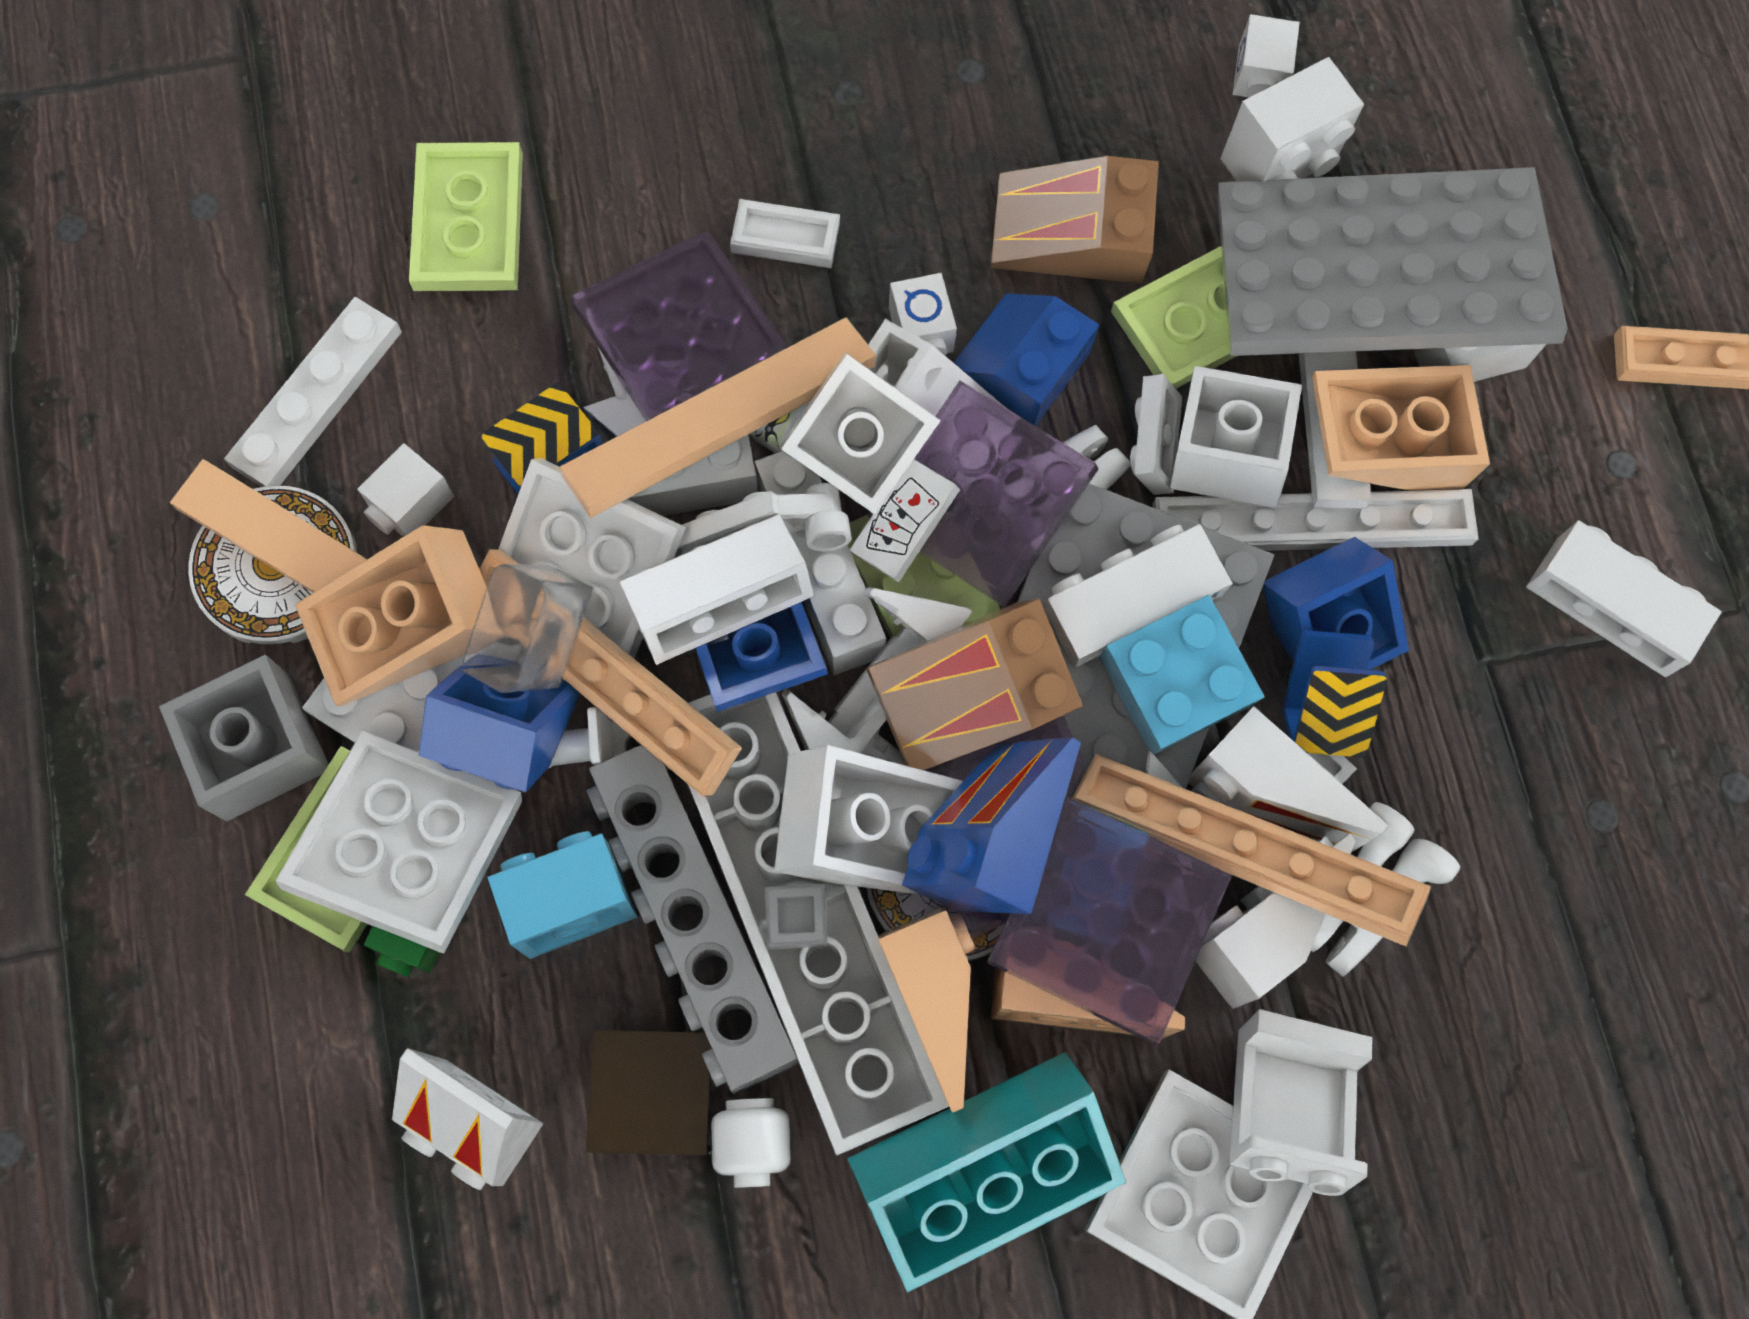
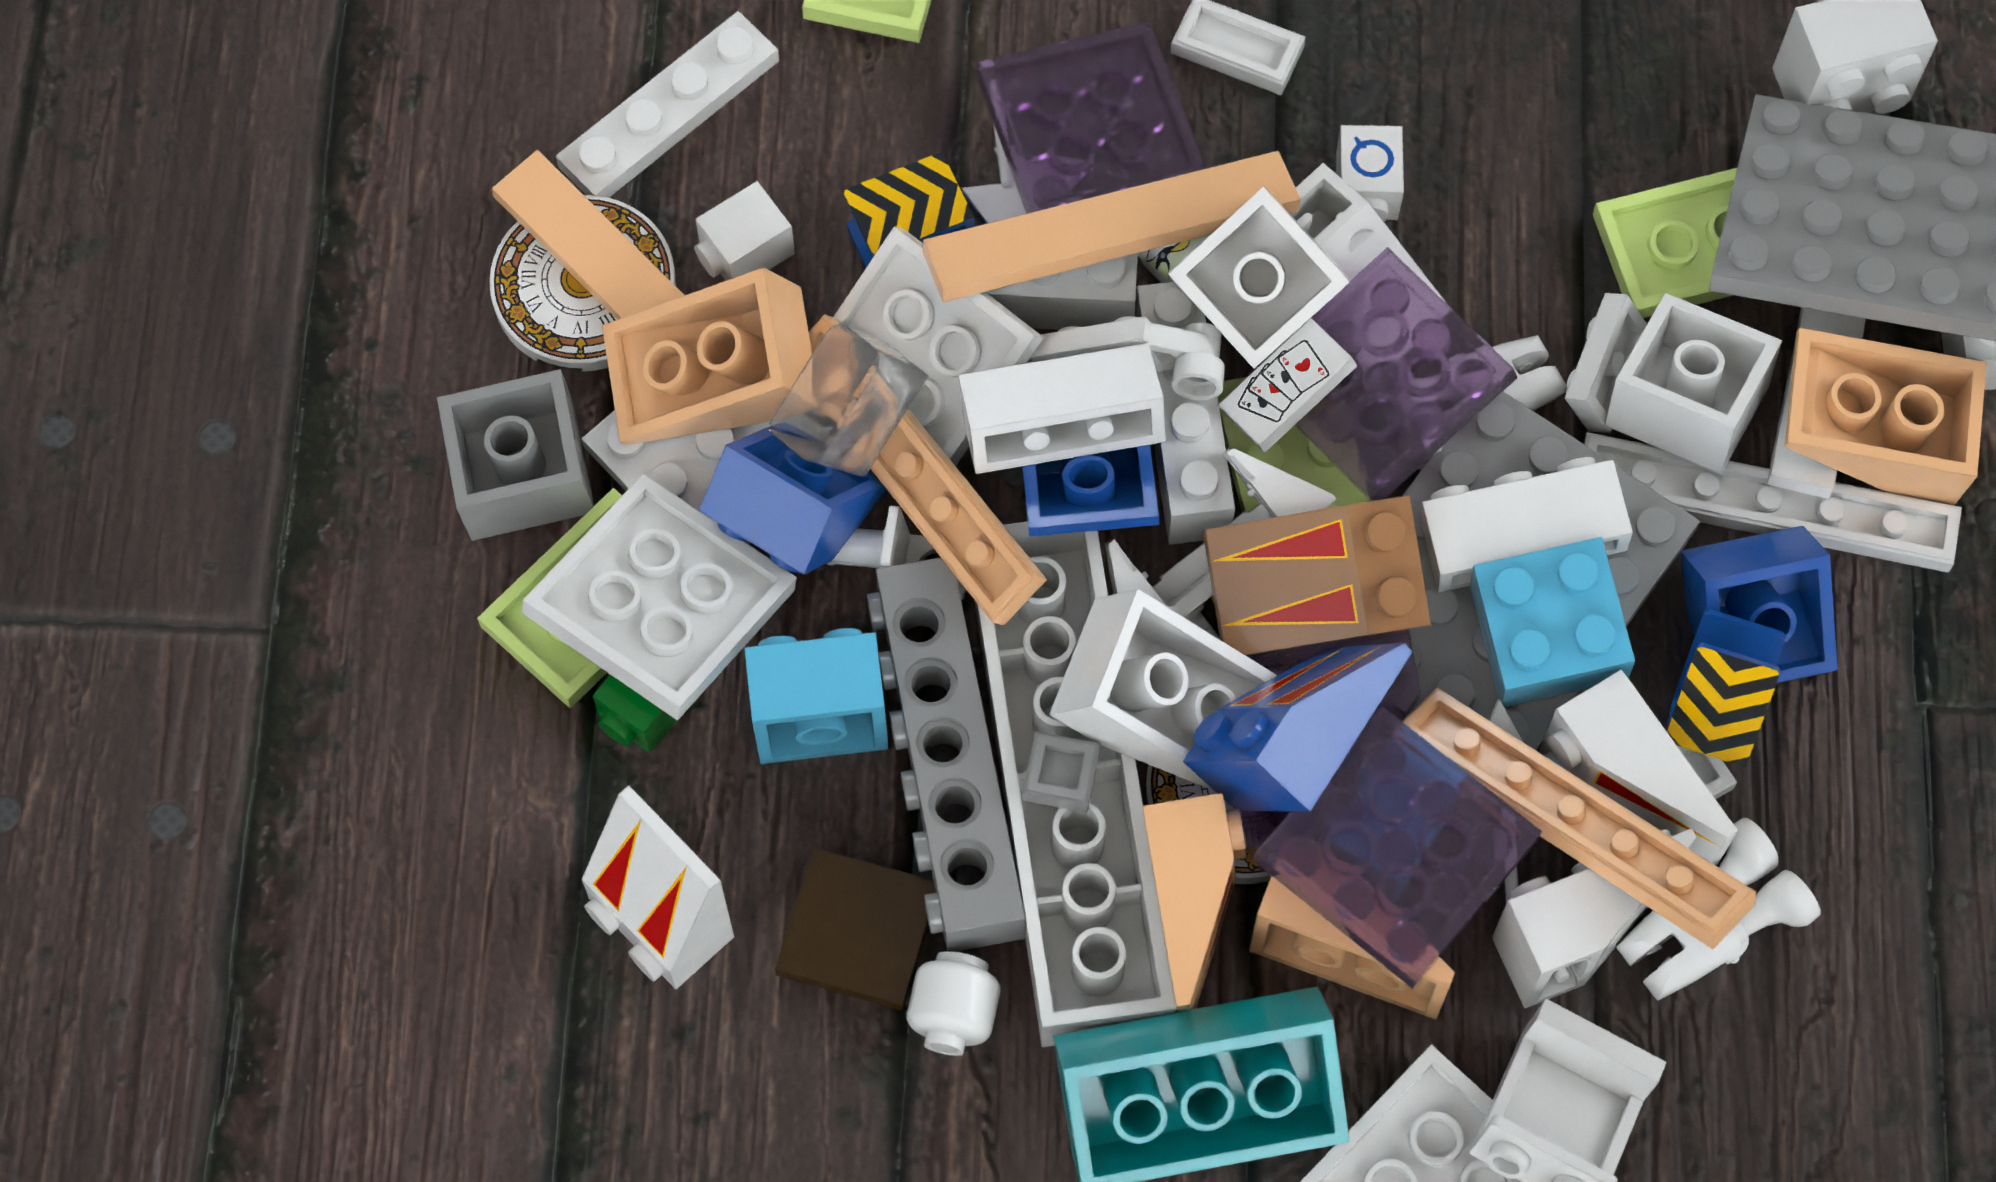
camera: 20 degrees right, 5 degrees down
(1028, 352) = (1482, 240): blue slope -> none
(1078, 219) = (1578, 101): medium nougat slope -> none

